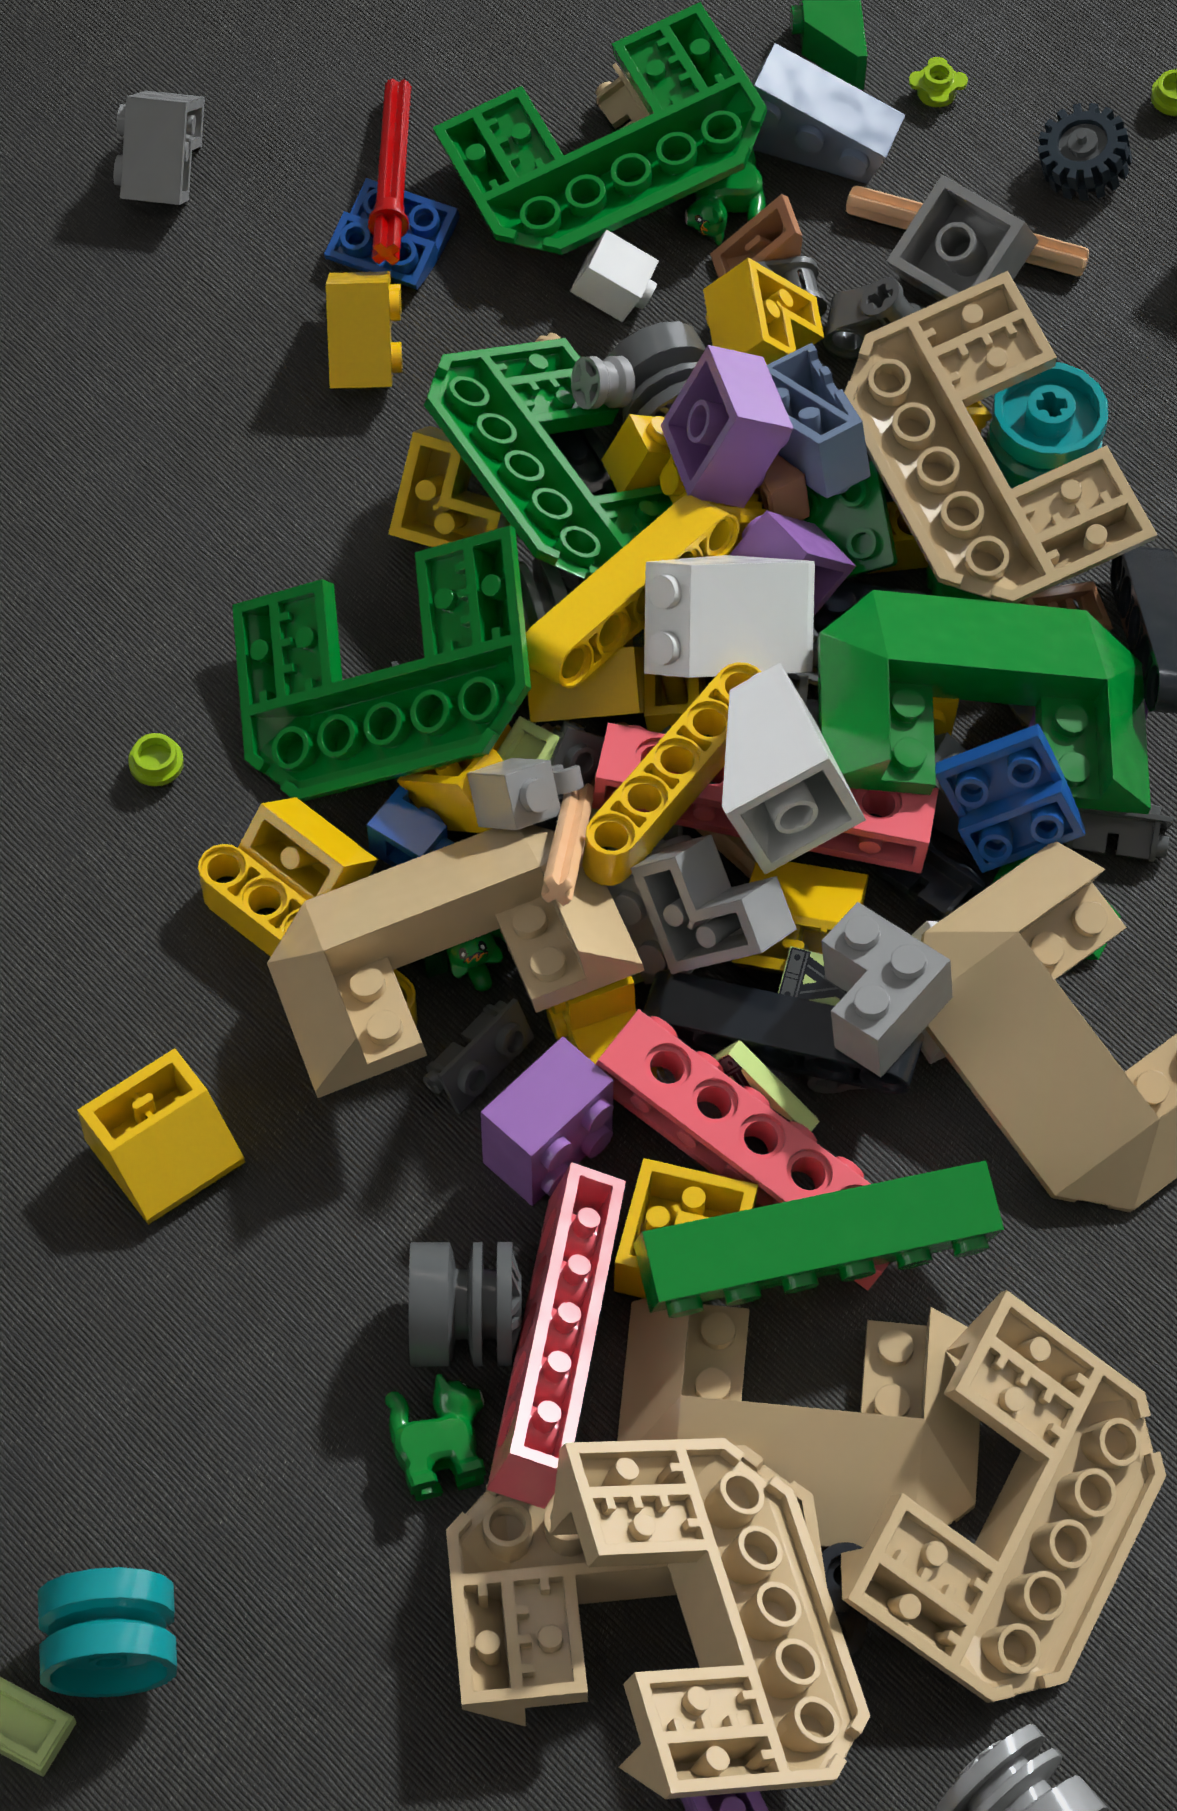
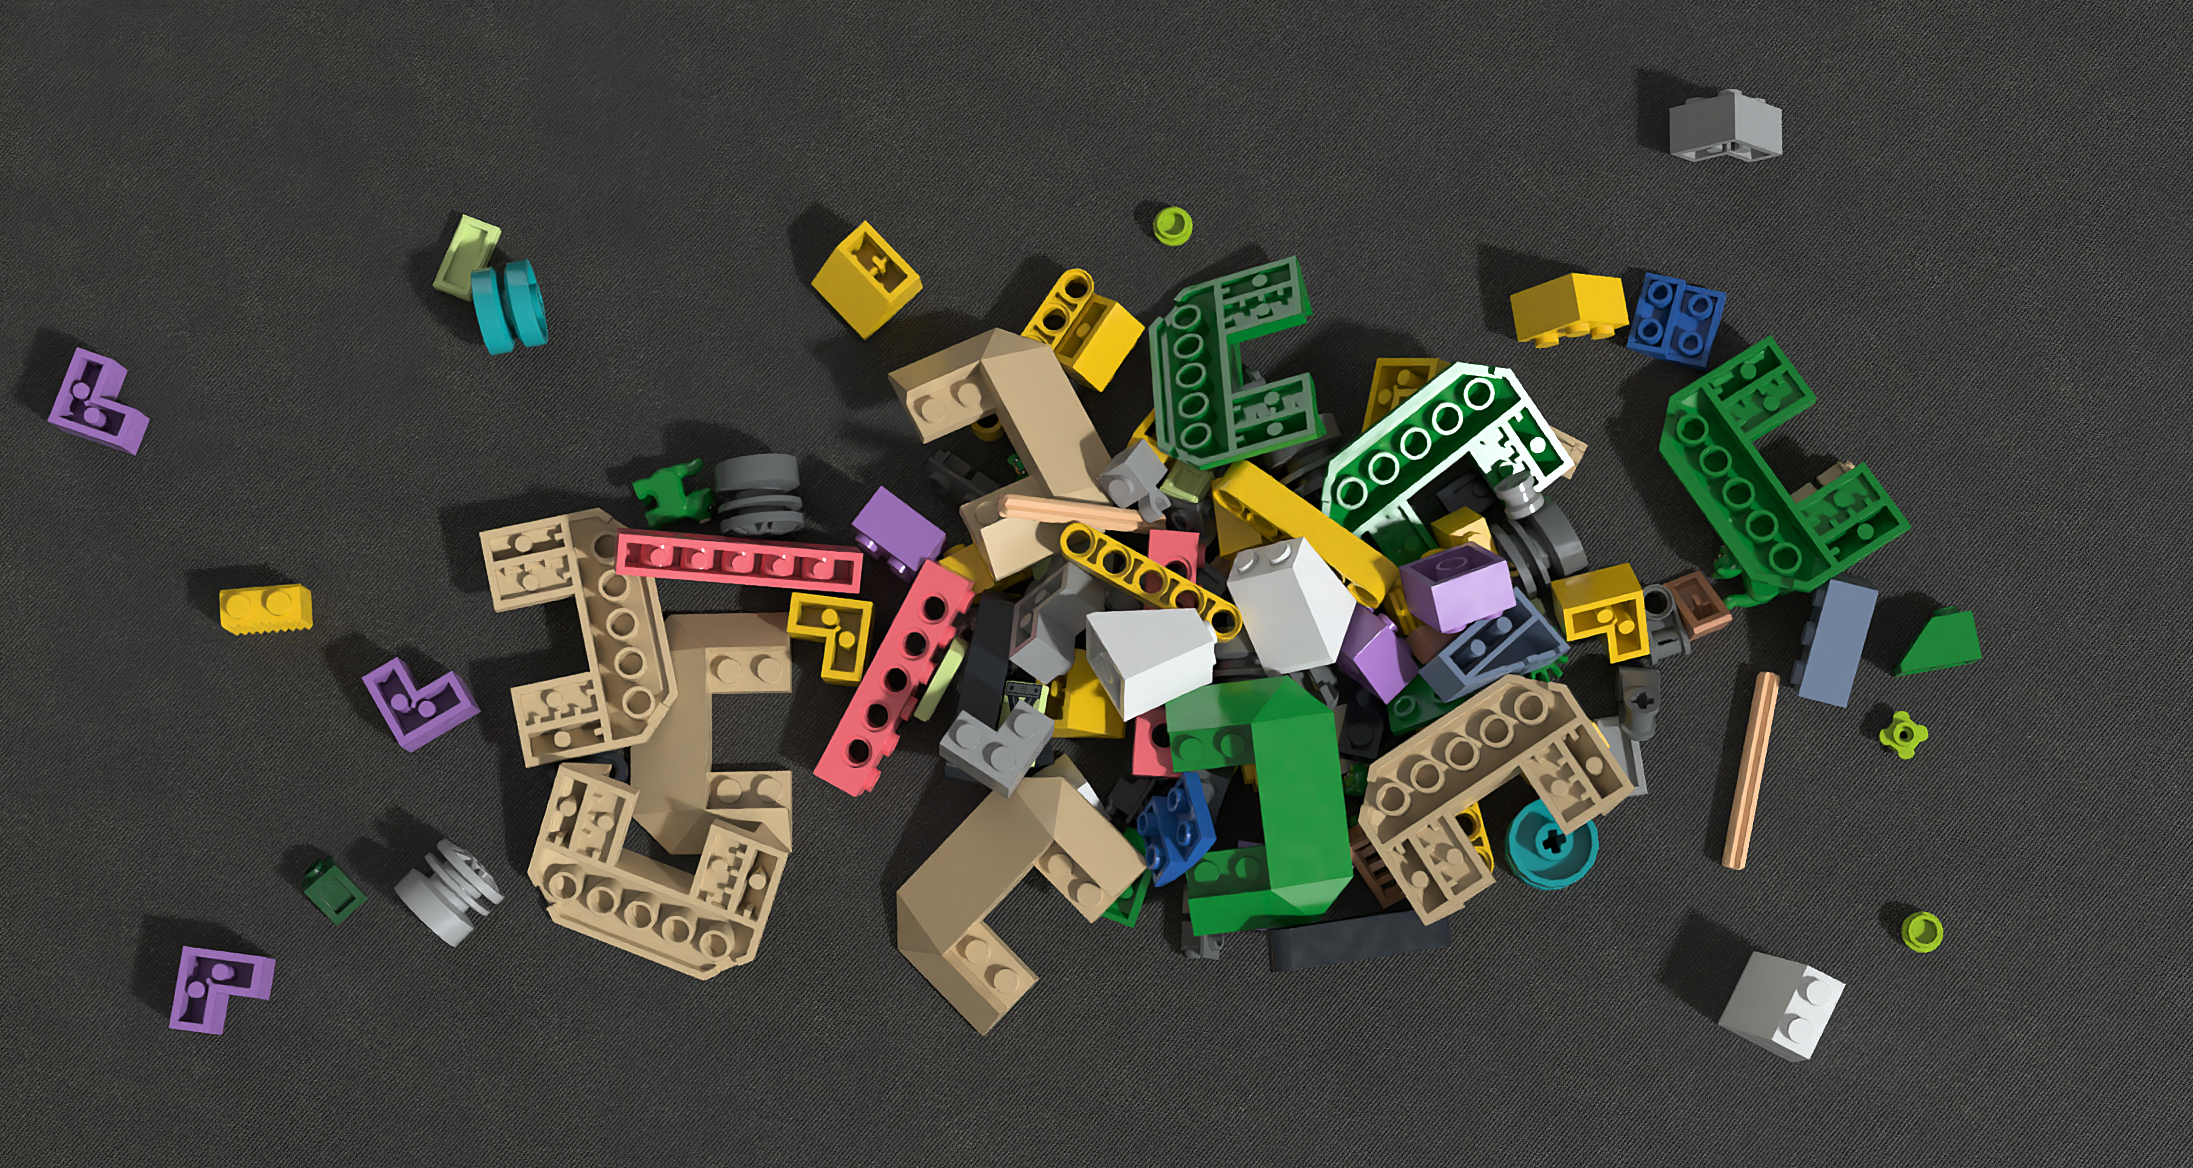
camera: 90 degrees right, 20 degrees up
(388, 220) = (1726, 310): red axle -> none
(404, 831) = (1125, 413): blue brick -> none
(616, 277) = (1650, 497): white brick -> none
(774, 1672) = (546, 714): tan slope -> none
(818, 1238) = (817, 724): green brick -> none
(959, 242) = (1708, 763): light grey brick -> none
(1084, 151) = (1839, 858): black wheel -> none

